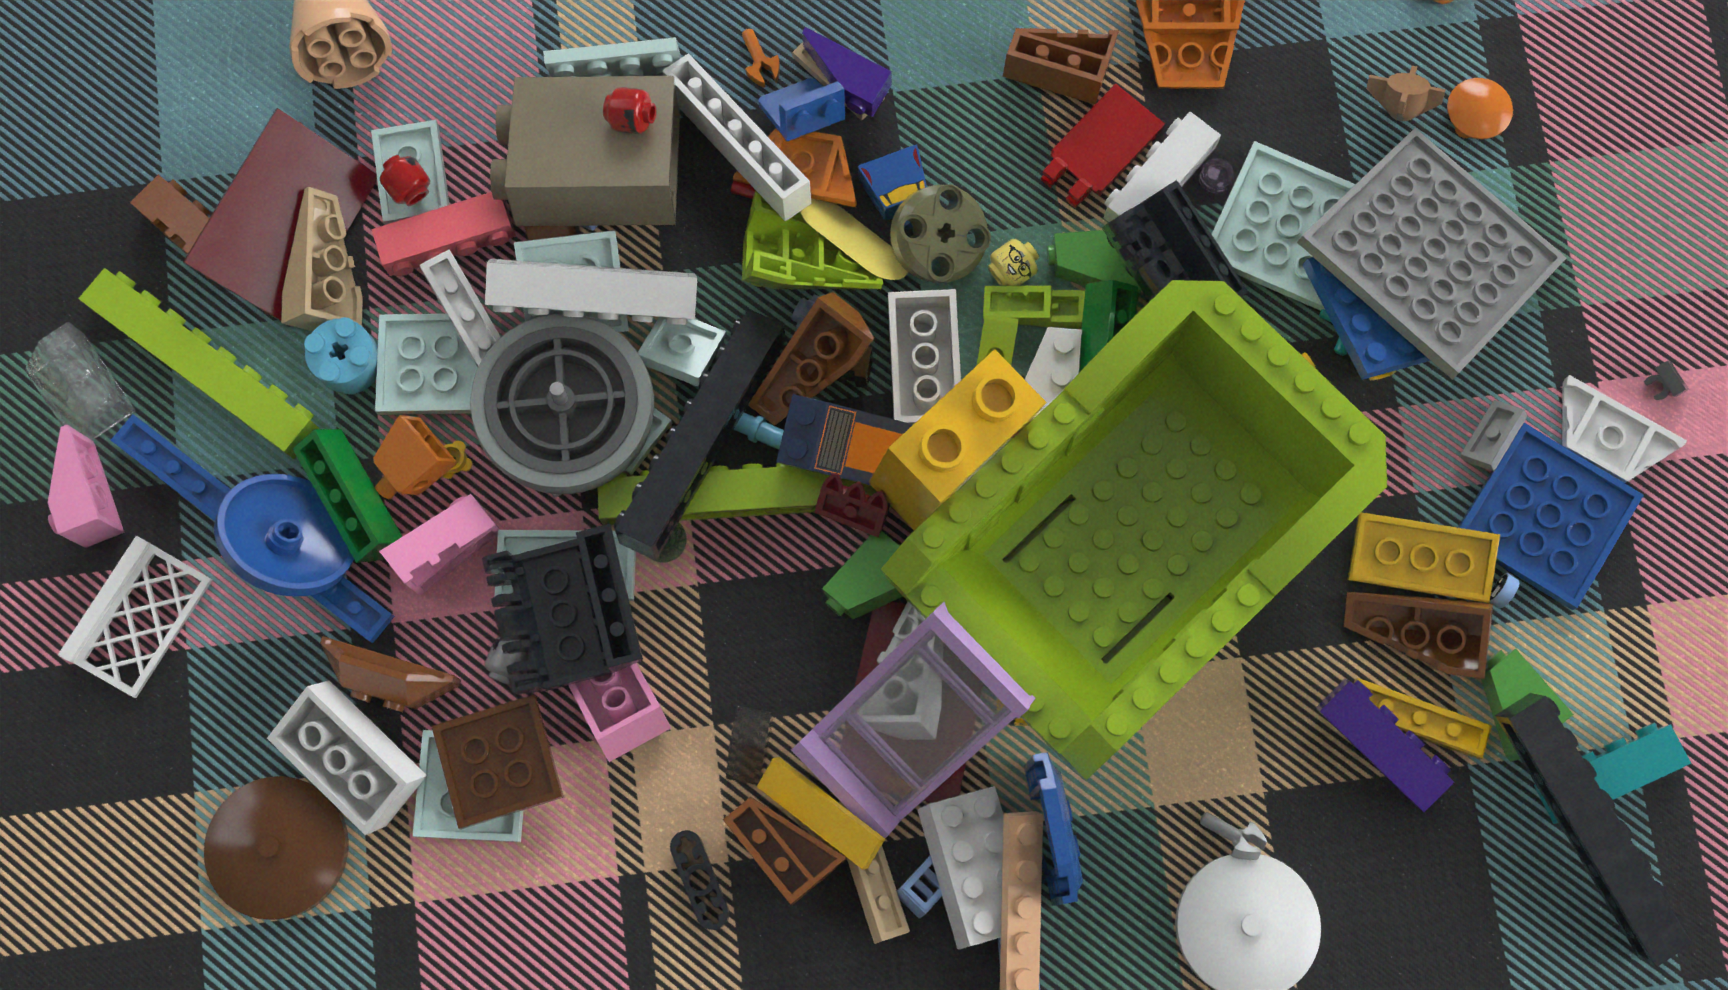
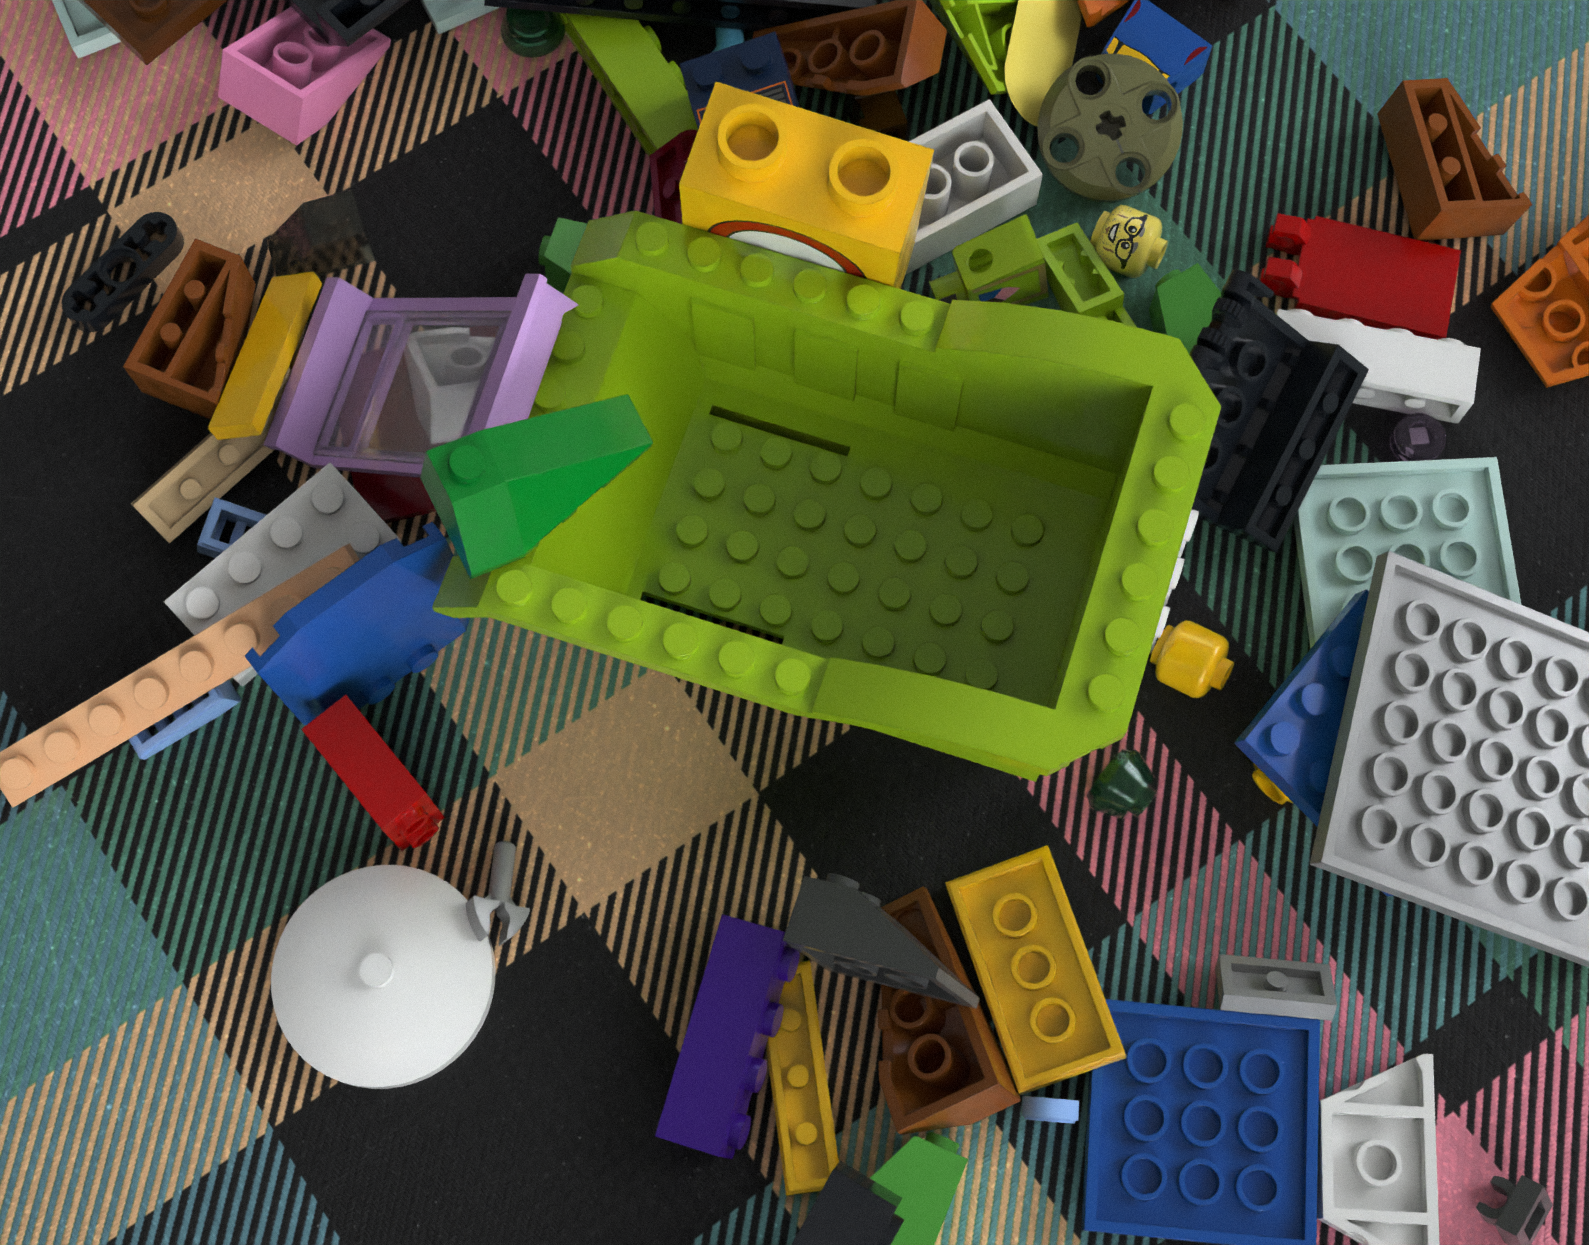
camera: 60 degrees right, 5 degrees down
(1057, 687) = (524, 478): none -> green wedge
(1136, 870) = (374, 774): none -> red window
(1372, 638) = (859, 939): none -> dark grey slope

